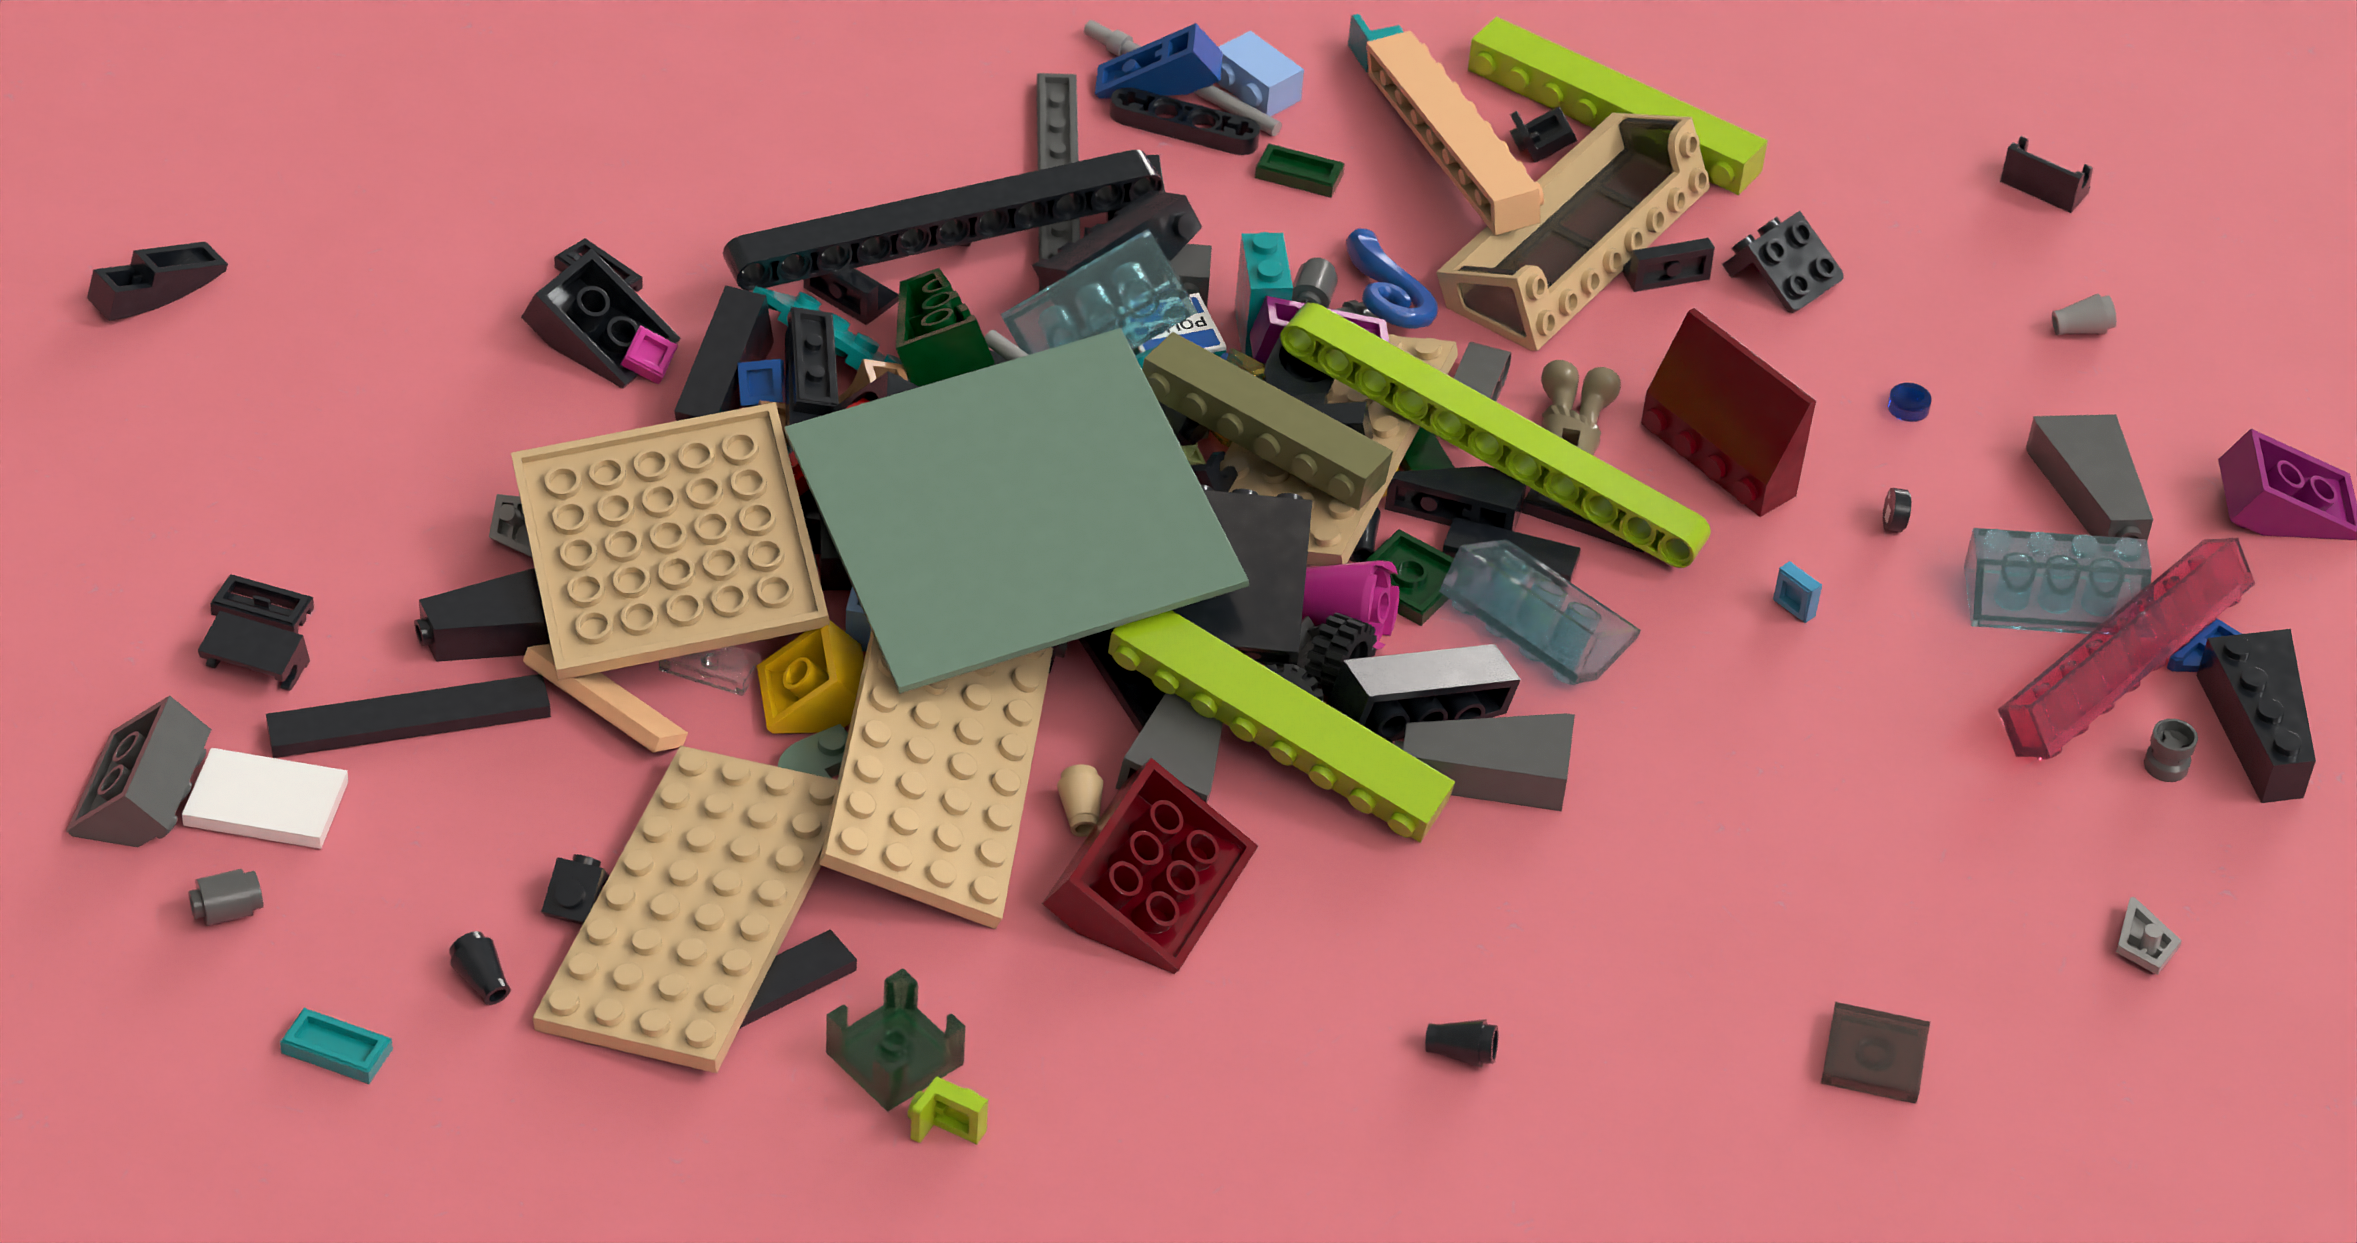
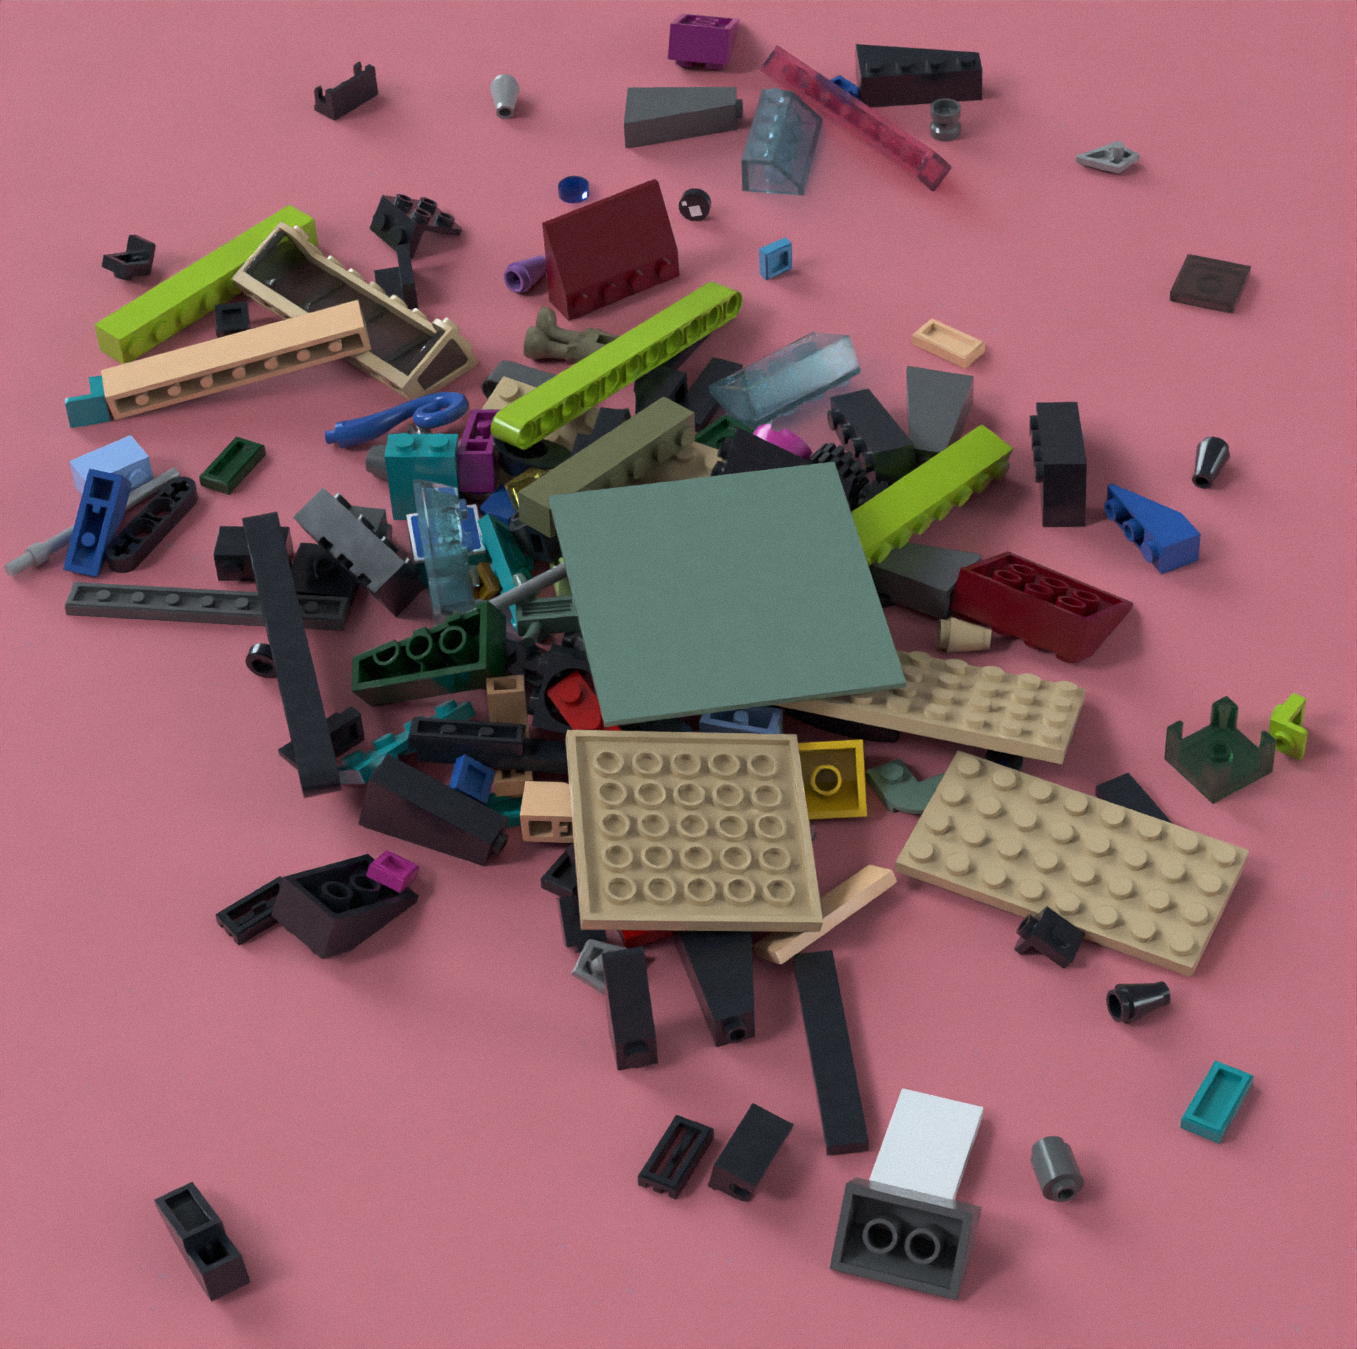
camera: 75 degrees left, 0 degrees up
(418, 529) = (629, 1008): none -> black slope
(1303, 985) = (1157, 530): none -> blue slope
(1425, 875) = (1059, 463): none -> black wedge
(1642, 39) = (133, 262): none -> black bracket
(1672, 778) = (948, 343): none -> light nougat tile

